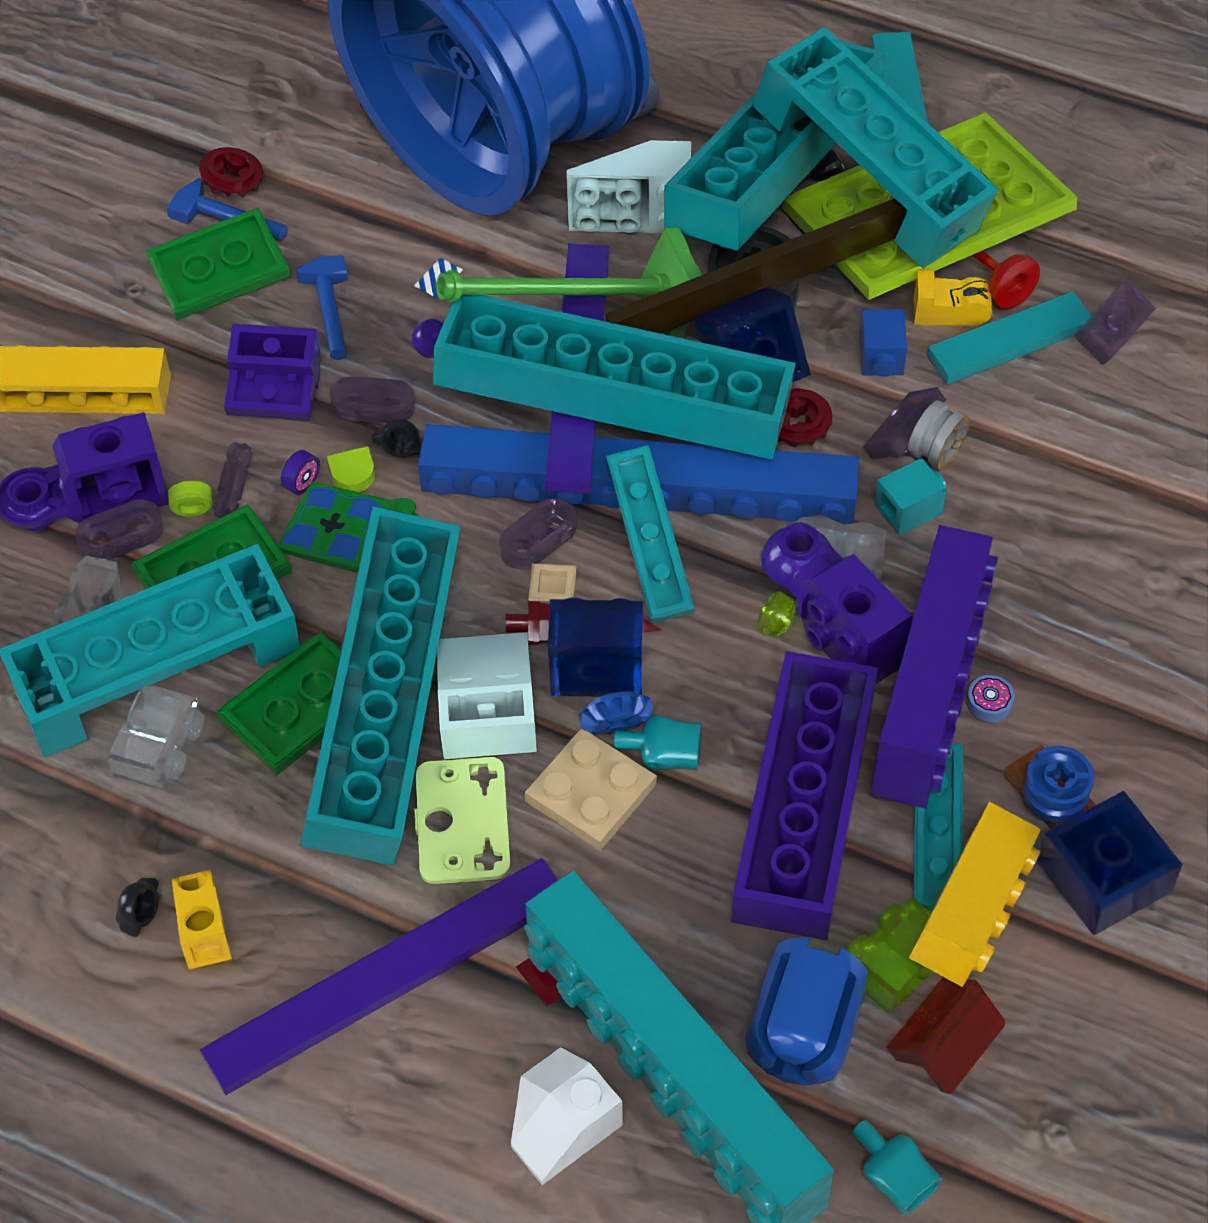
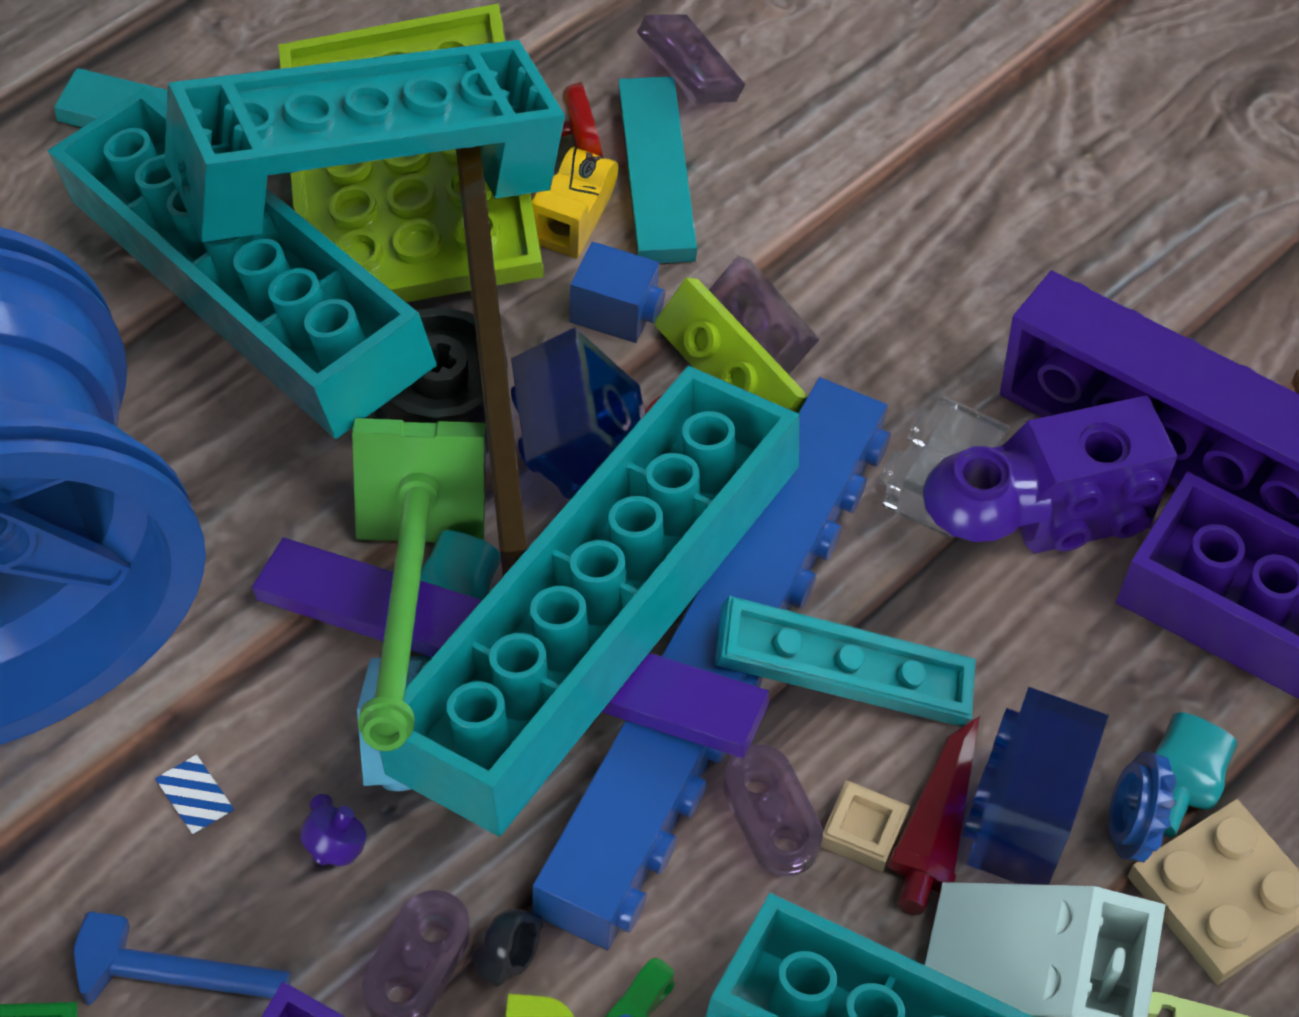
camera: 75 degrees left, 0 degrees up
(624, 188) = (224, 440): light aqua slope -> none
(776, 614) = (1018, 568): clear neon green piece -> none
(869, 407) = (722, 347): none -> lime plate
(910, 496) = (883, 354): teal brick -> none
(939, 434) = (808, 282): light grey wheel -> none

